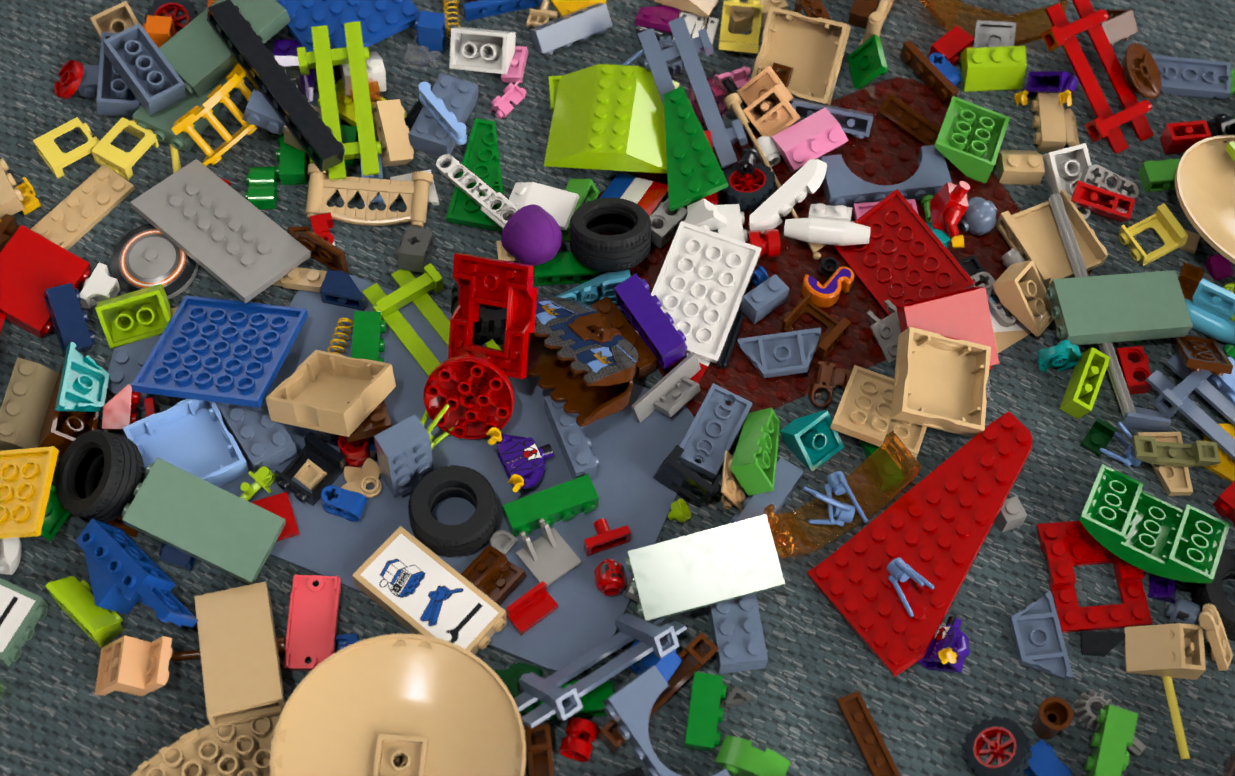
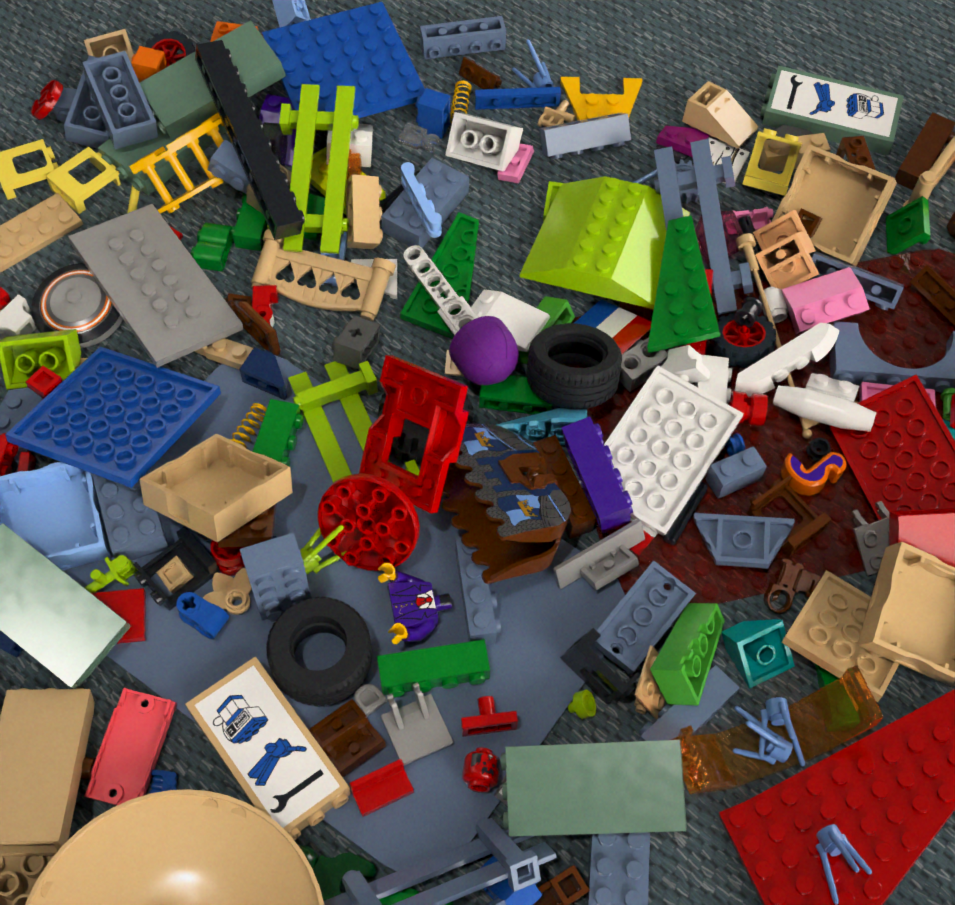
camera: 15 degrees right, 0 degrees up
(147, 335) = (43, 382): none -> red tile
(512, 94) = (491, 203): bright pink hinge -> none

